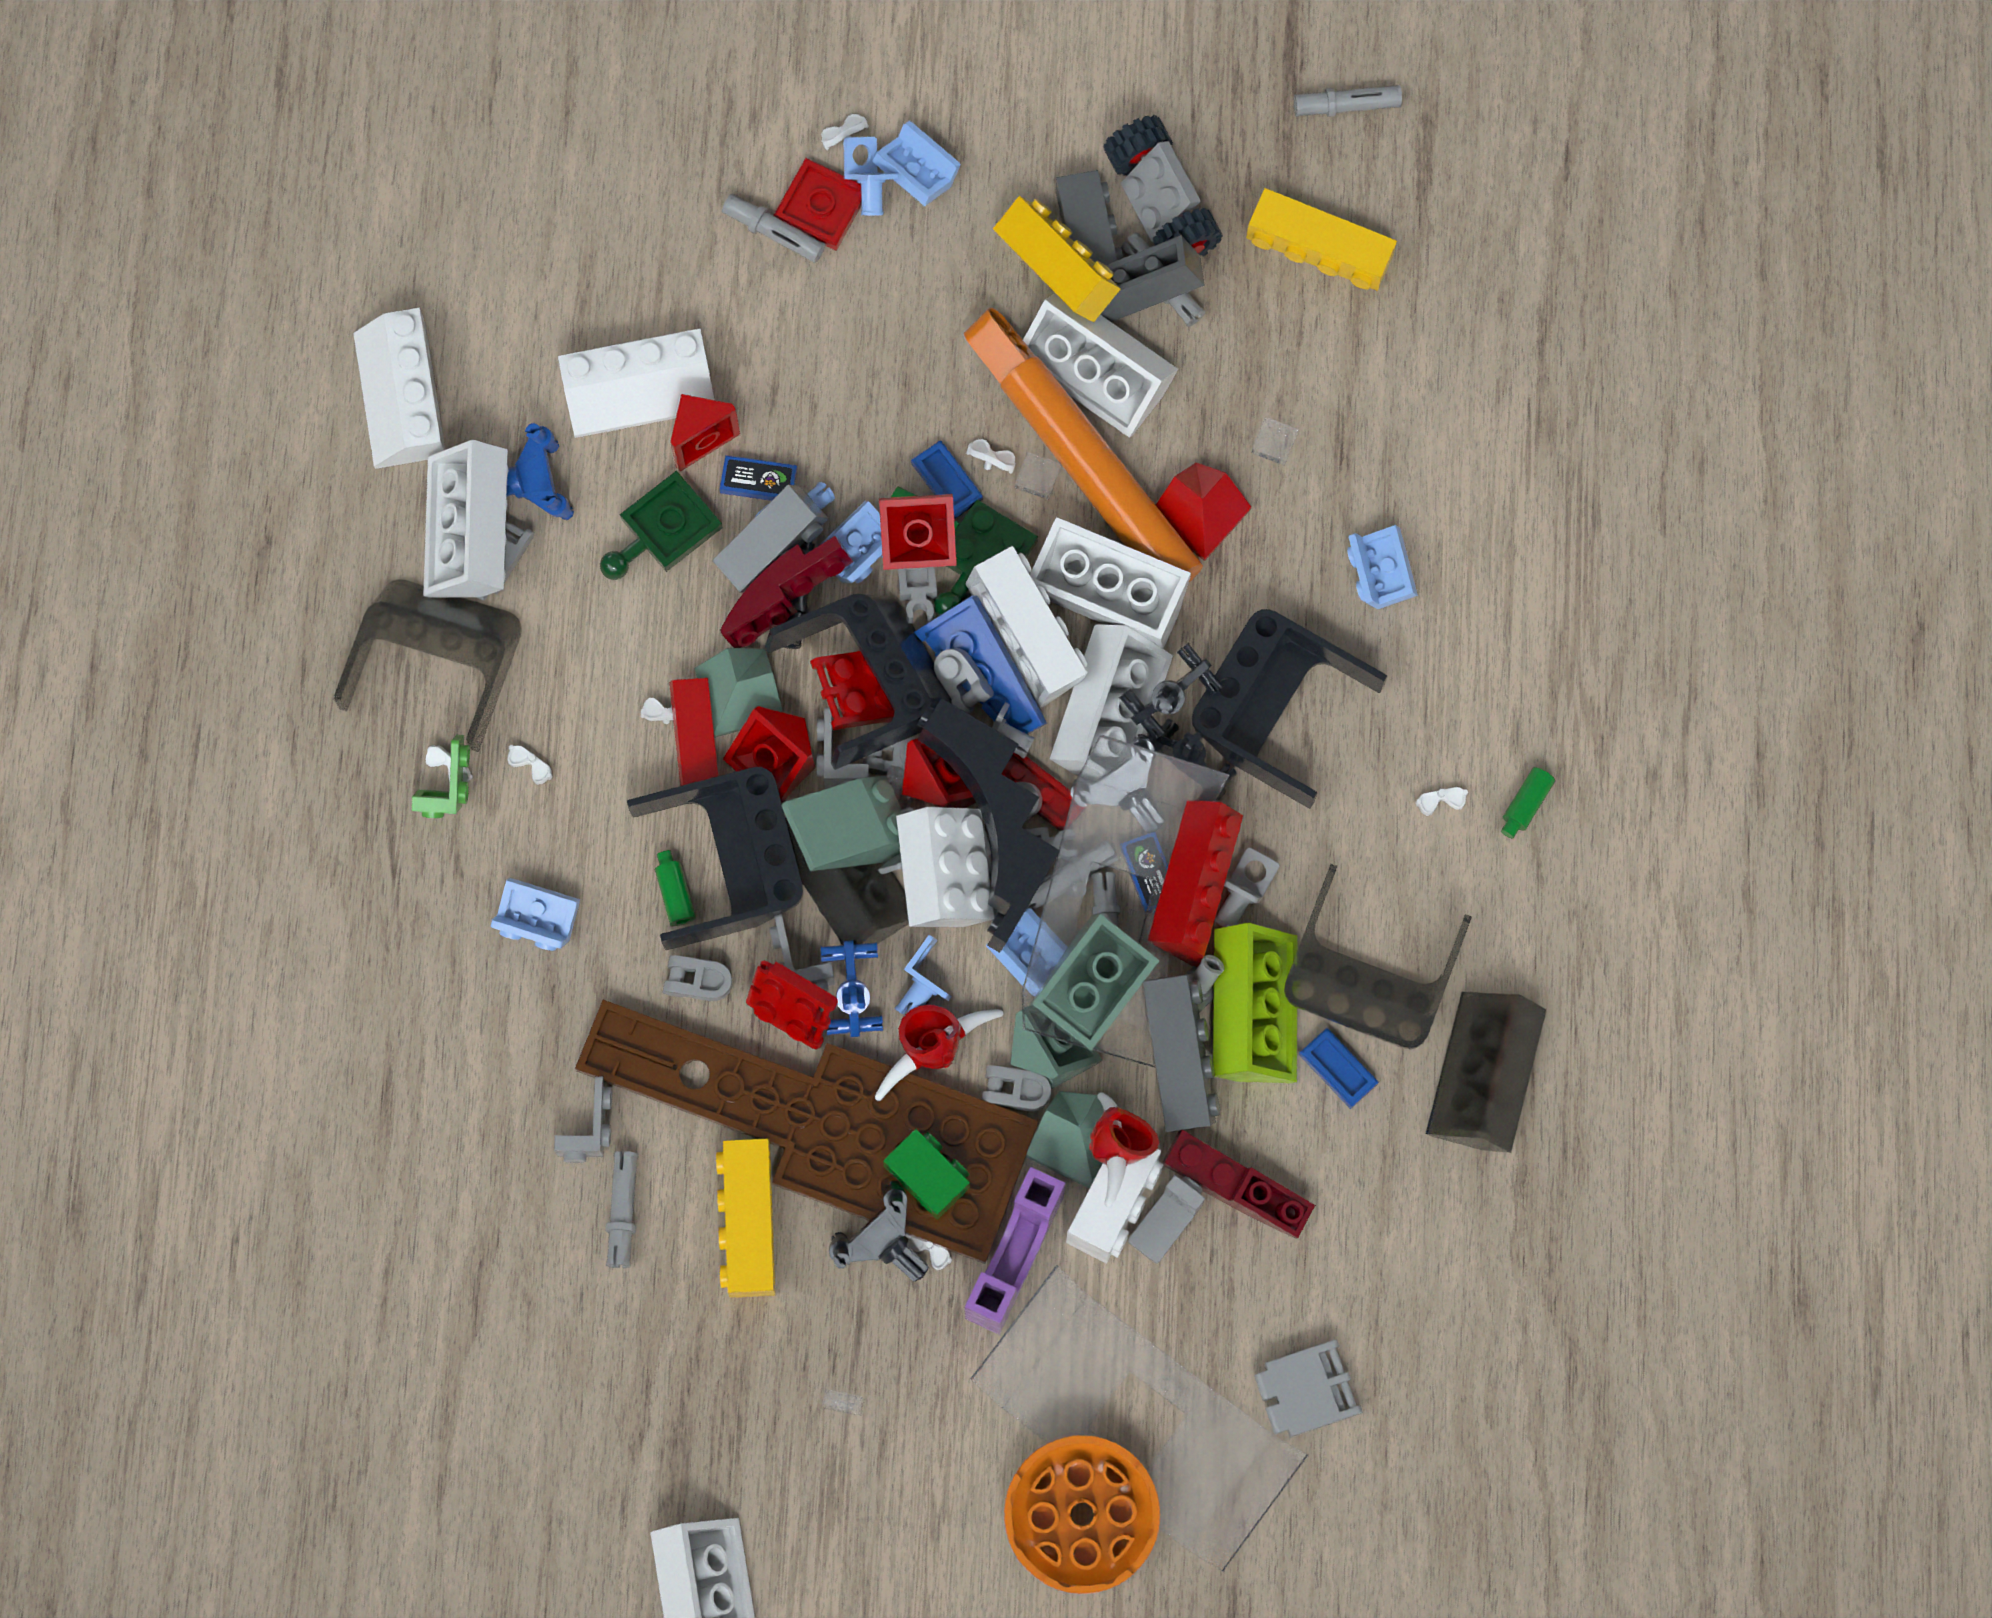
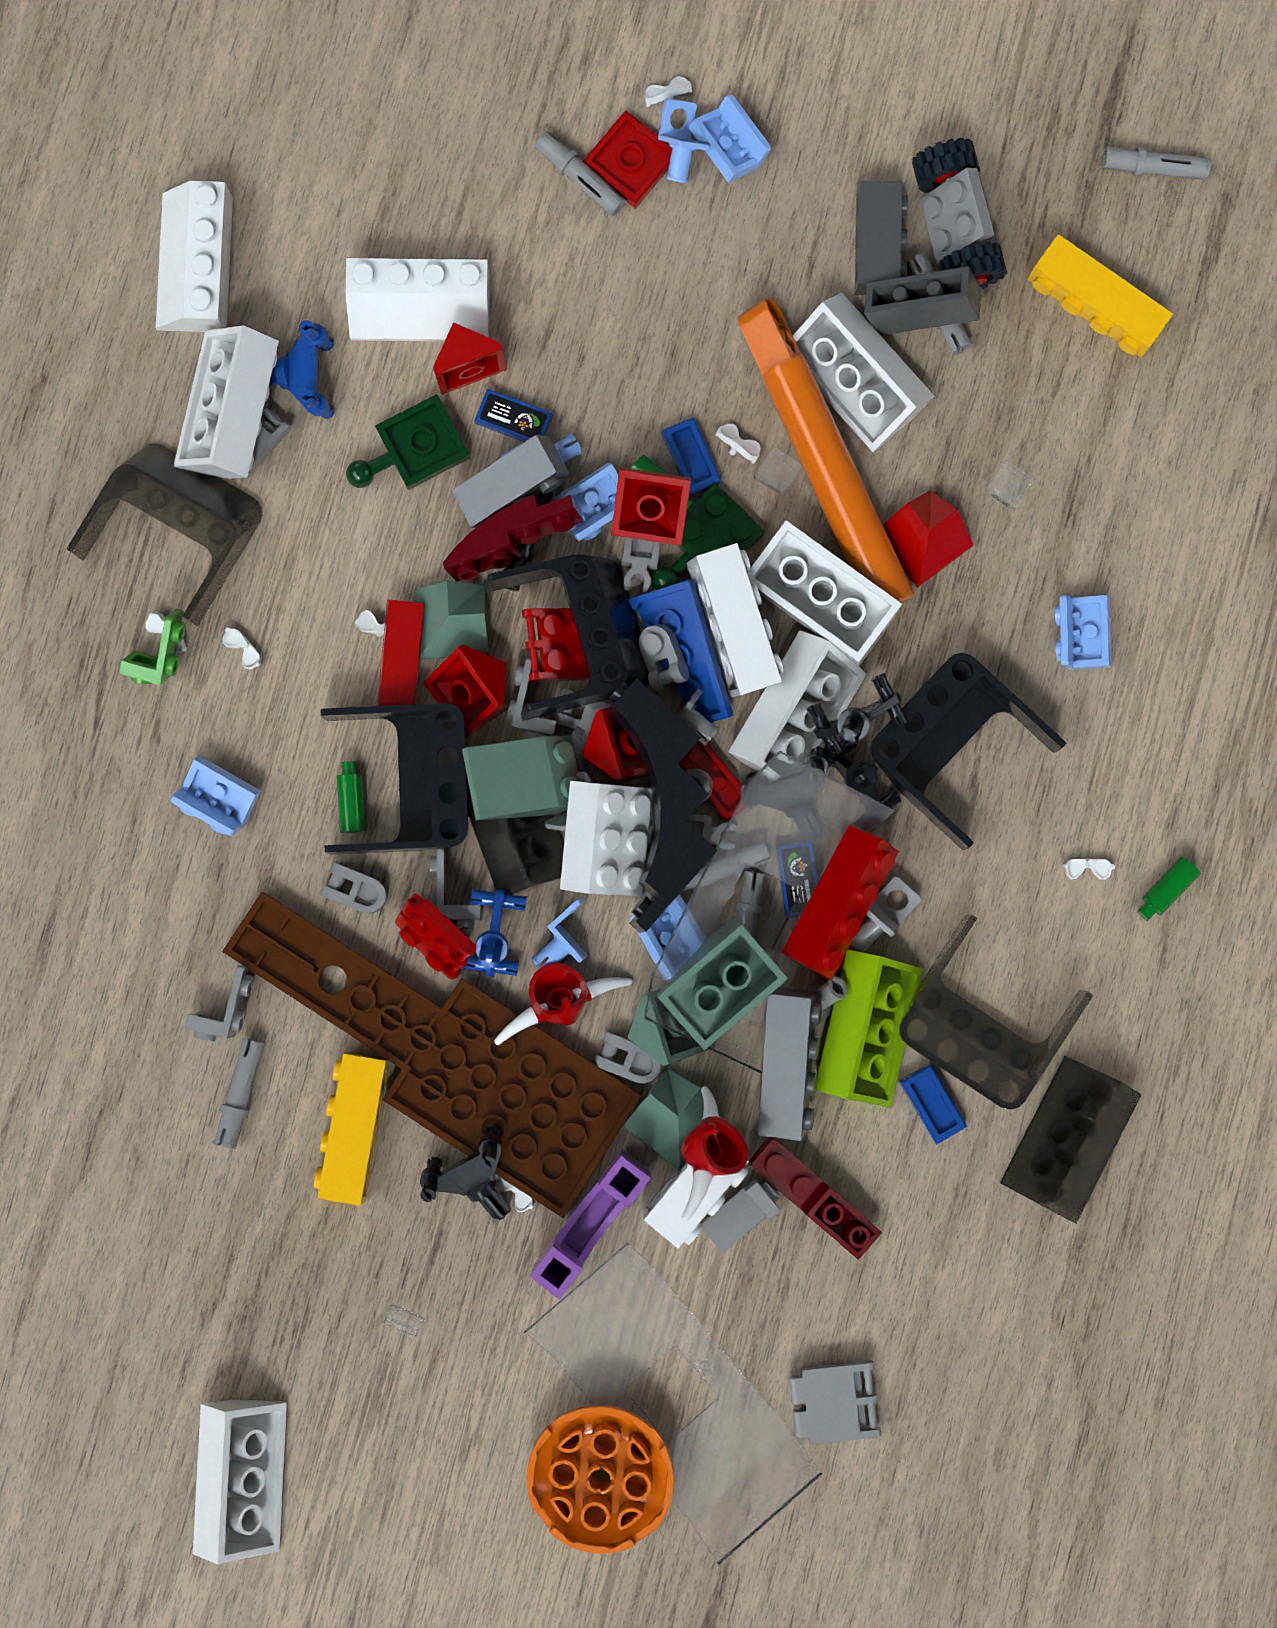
camera: 10 degrees right, 10 degrees up
(927, 1173) = (526, 1127): green brick -> none
(1057, 258) = (843, 262): yellow brick -> none

